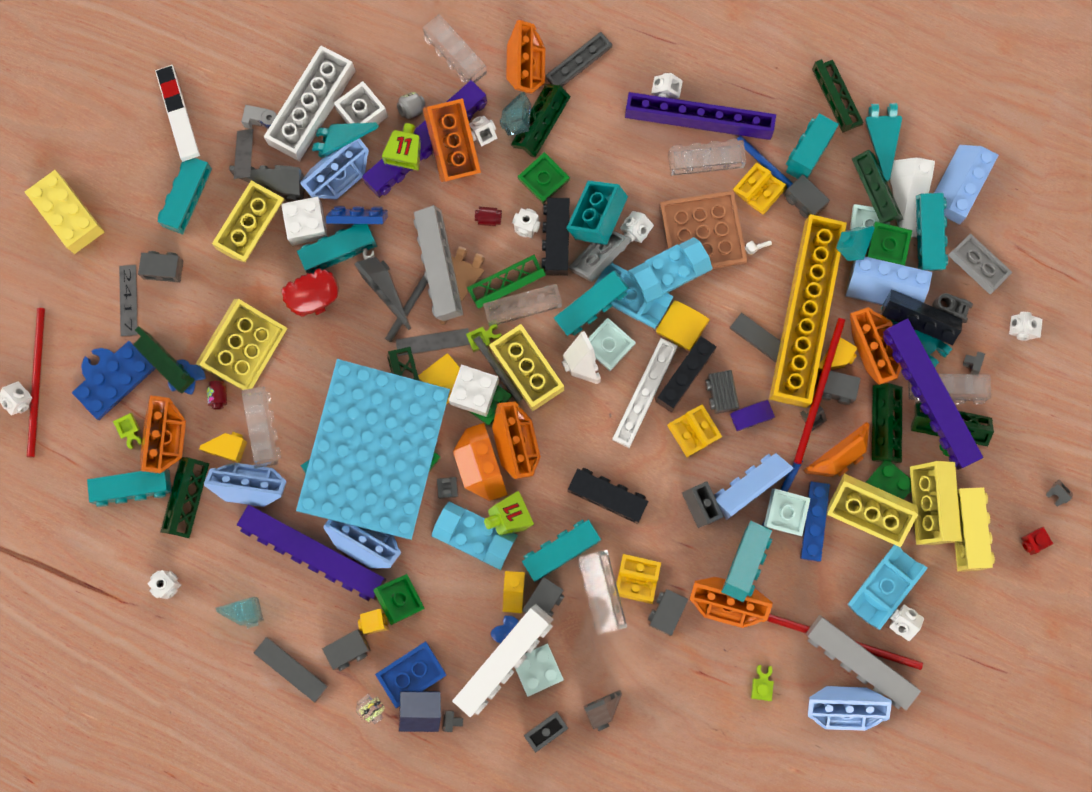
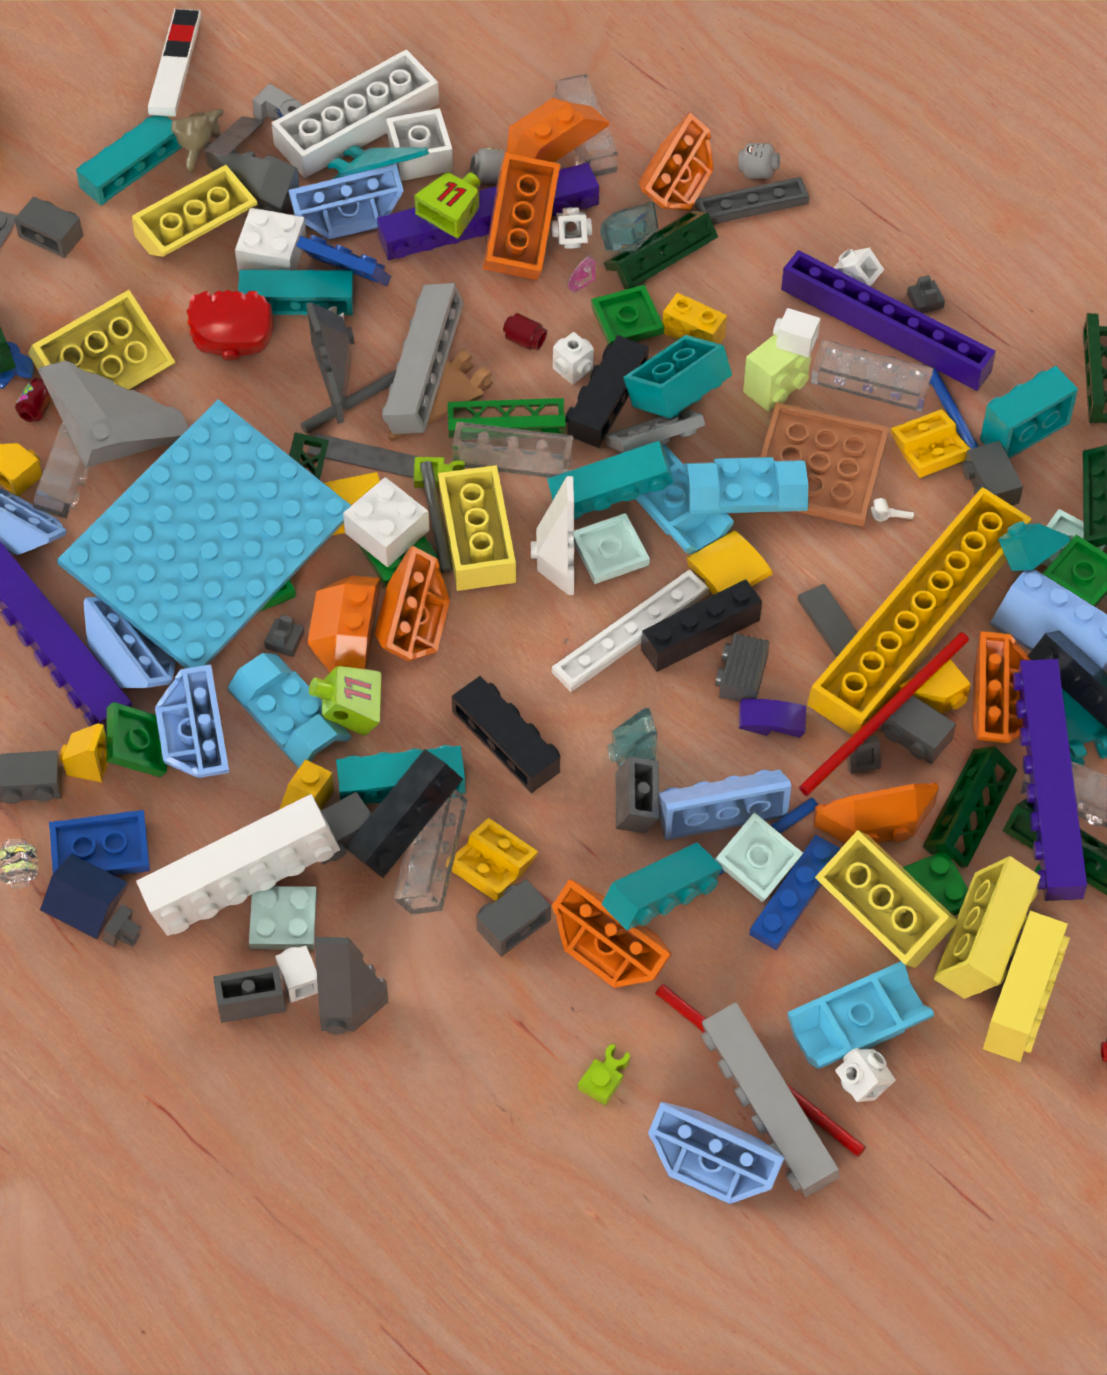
camera: 20 degrees right, 20 degrees down
(218, 161) = (196, 132): none -> dark tan animal
(269, 391) = (107, 418): none -> light grey slope
(428, 577) = (192, 724): none -> light blue wedge
(439, 69) = (554, 130): none -> orange wedge
(503, 160) = (582, 275): none -> clear tile
(564, 702) = (297, 973): none -> white brick
(571, 31) = (758, 160): none -> light grey head
(579, 581) = (404, 813): none -> black brick
(587, 167) = (692, 318): none -> yellow brick
(636, 227) = (726, 419): white brick -> none
(653, 180) = (774, 374): none -> yellowish green brick
(660, 159) = (797, 332): none -> white brick
(685, 471) = (634, 739): none -> clear light blue slope
(694, 430) = (678, 704): yellow slope -> none
(712, 86) = (925, 295): none -> dark grey tile

